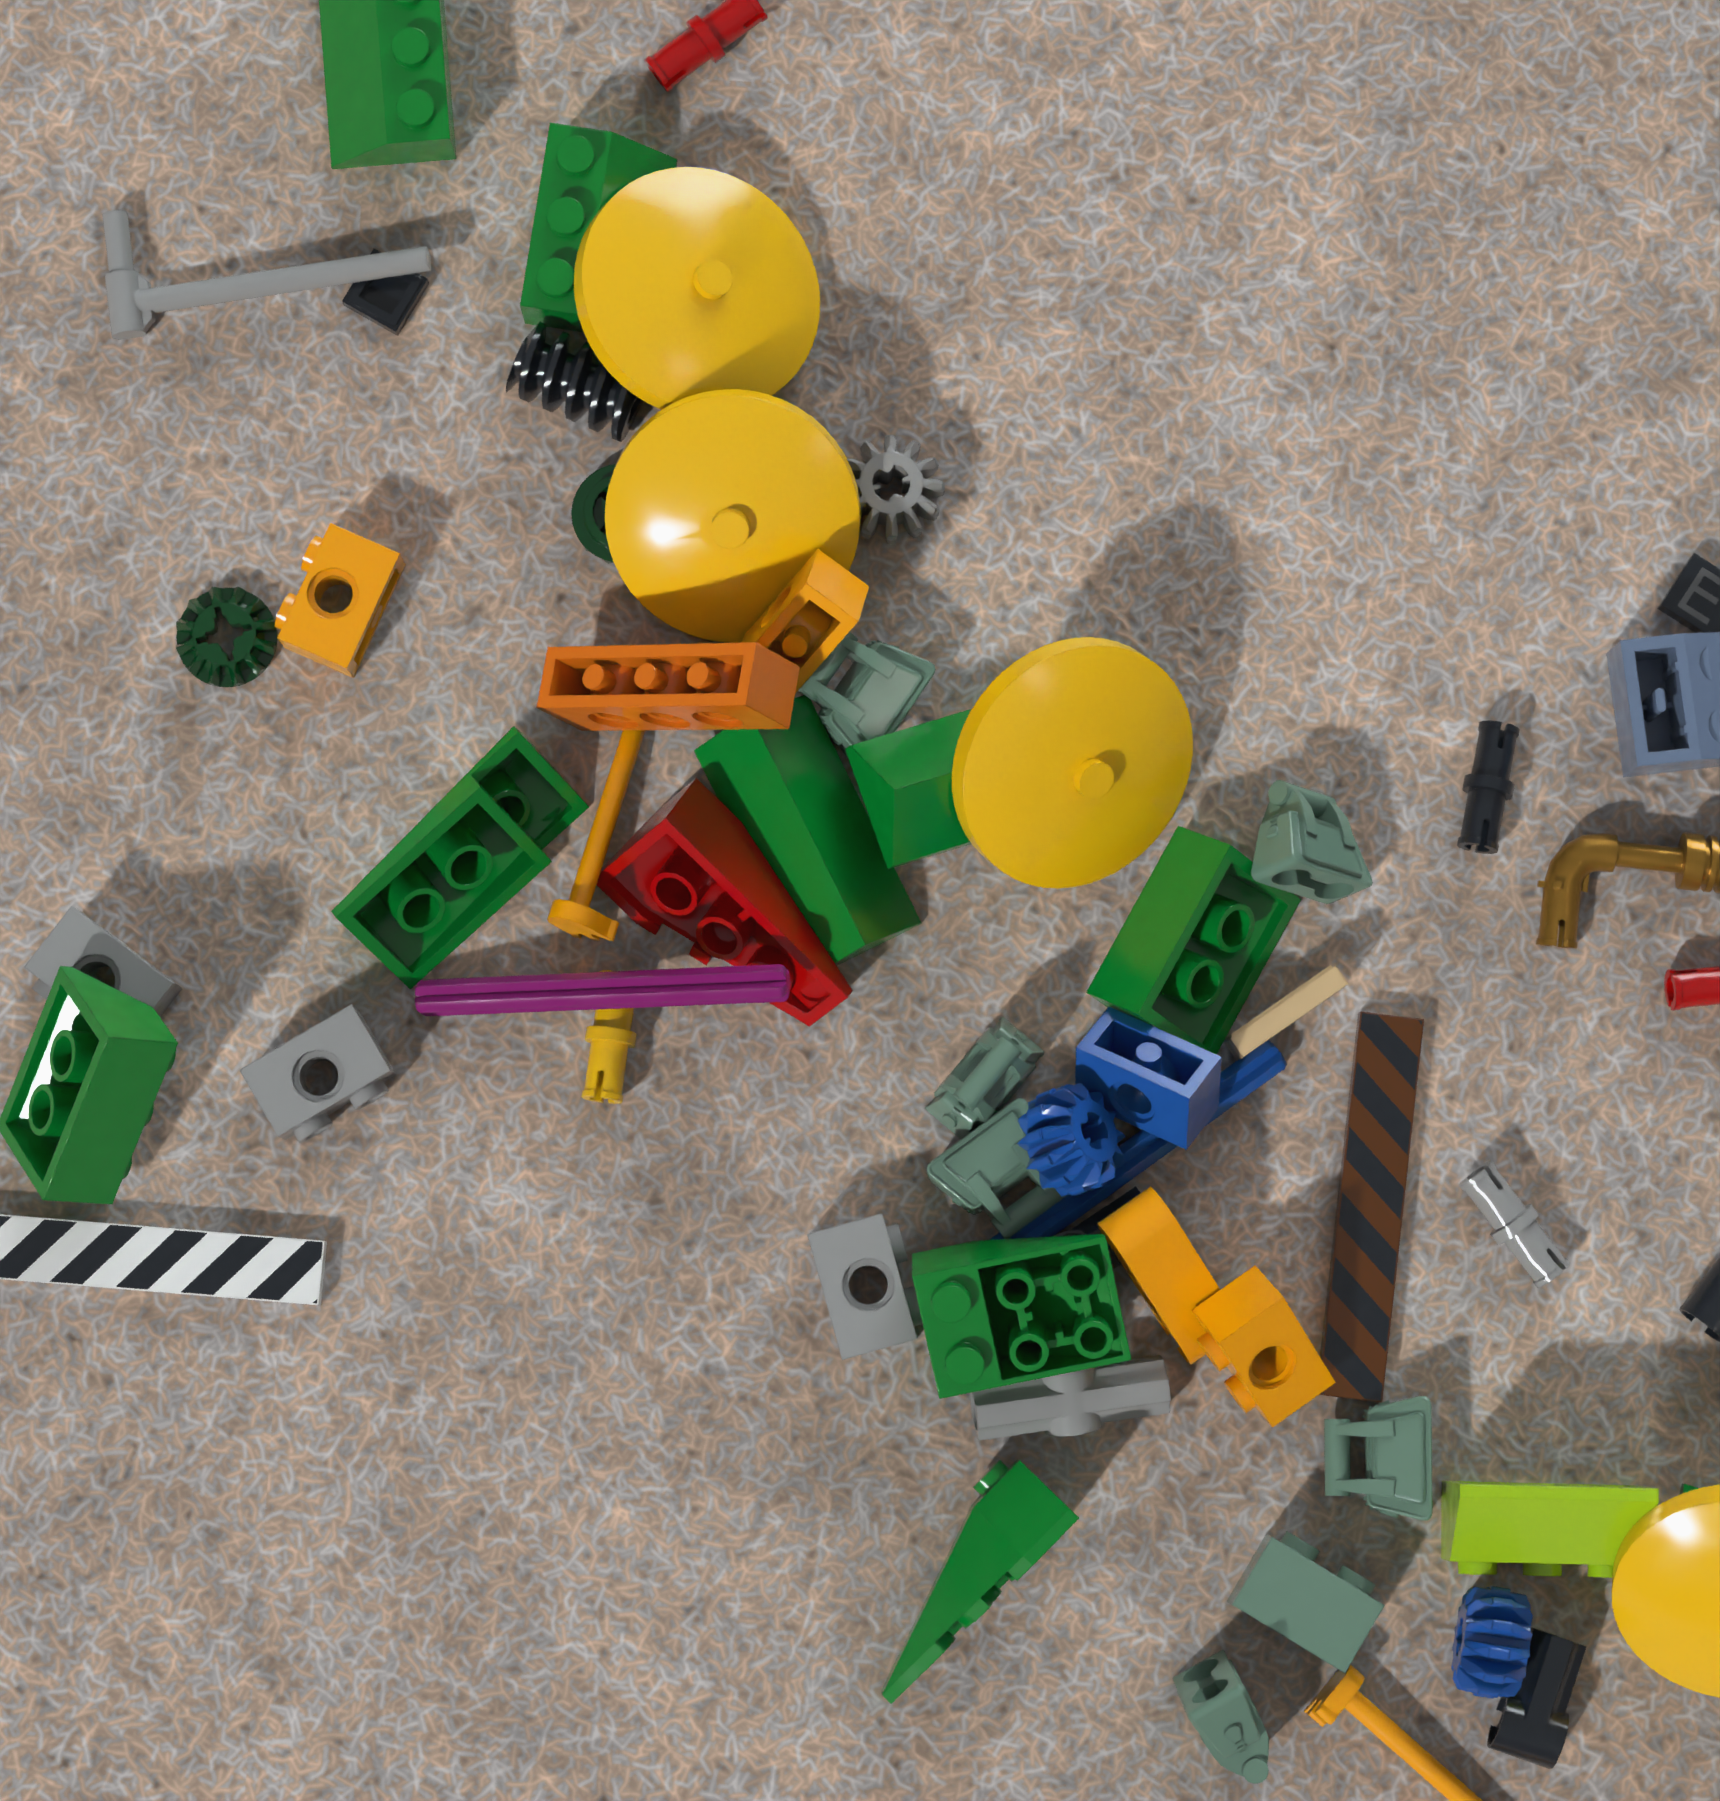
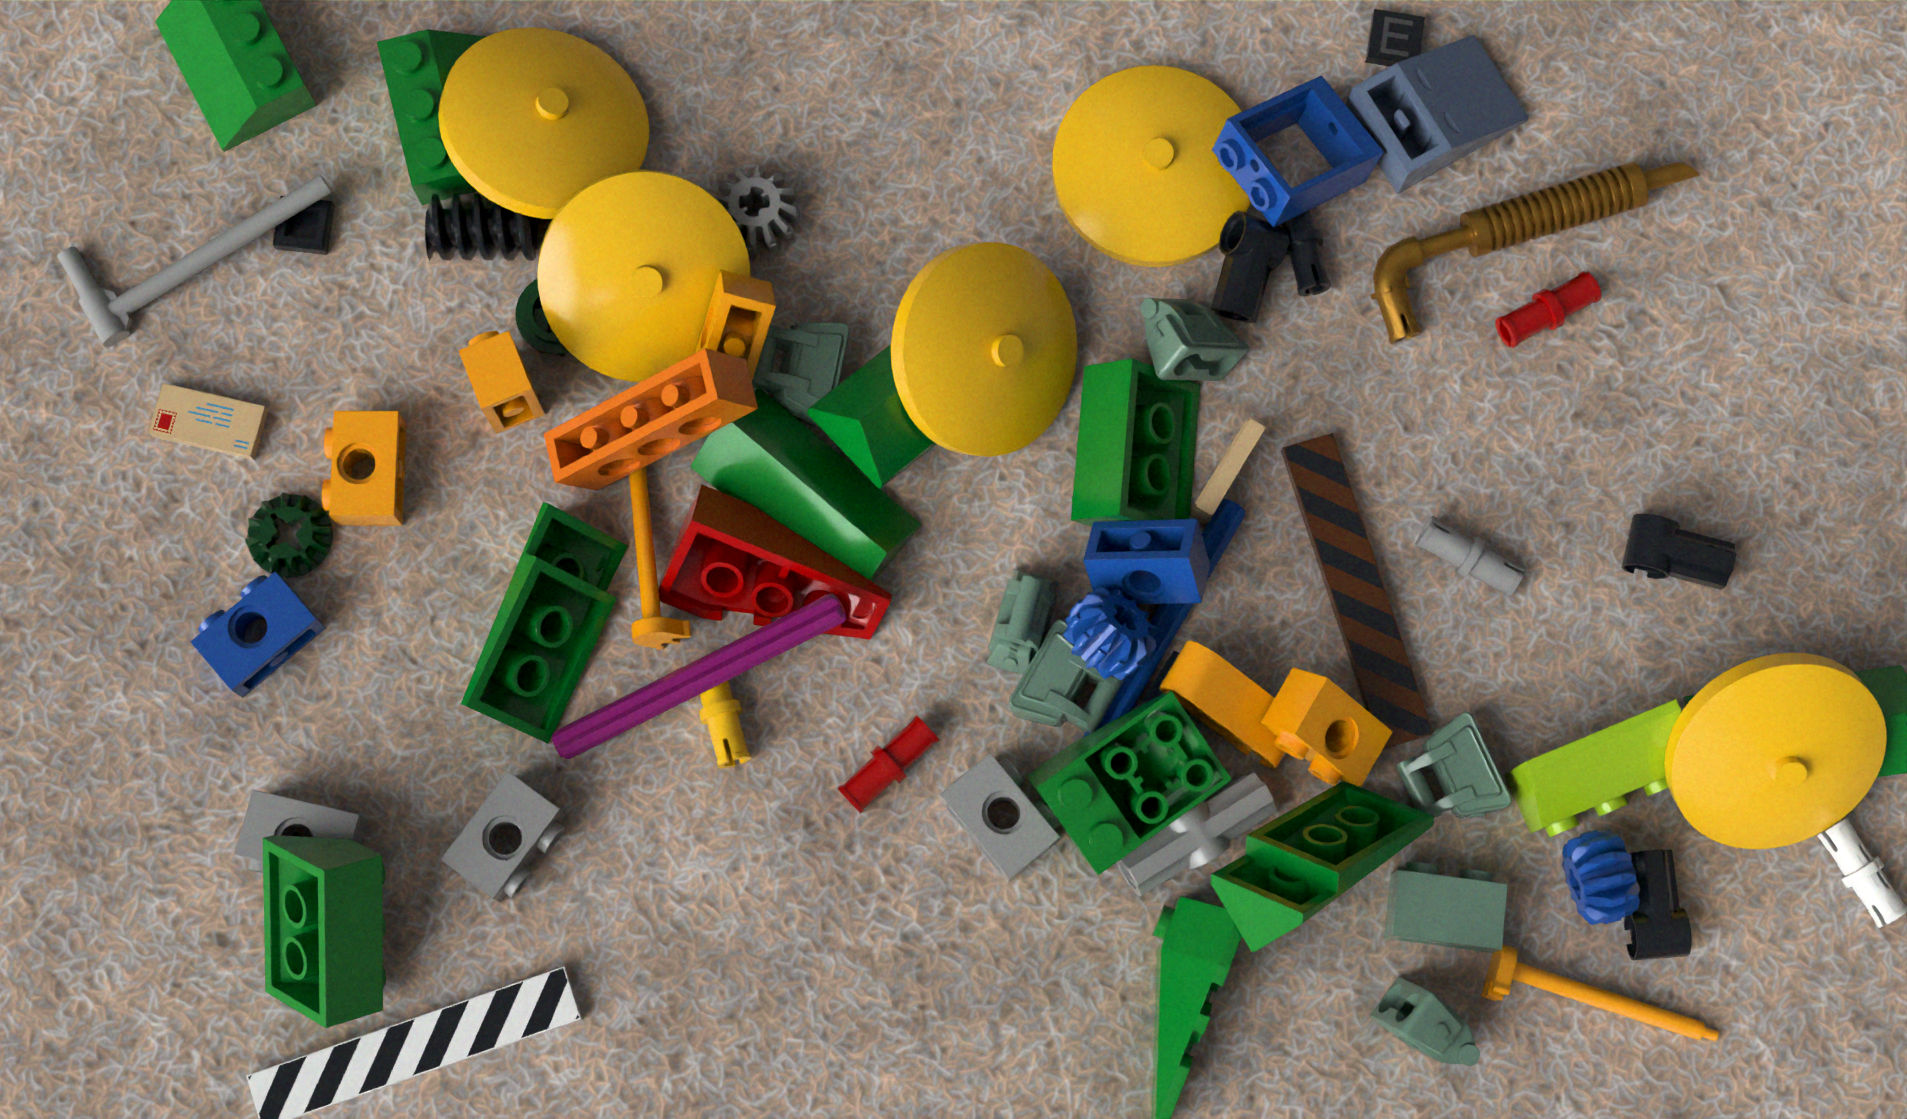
camera: 25 degrees left, 5 degrees down
(185, 738) = (288, 630): none -> blue brick
(191, 471) = (208, 421): none -> tan tile
(525, 567) = (500, 380): none -> light orange brick
(768, 1174) = (888, 764): none -> red pin
(1180, 1485) = (1312, 858): none -> green slope
(1362, 627) = (1141, 166): none -> yellow dish
(1424, 775) = (1251, 253): none -> black piece
(1577, 669) = (1315, 110): none -> blue window

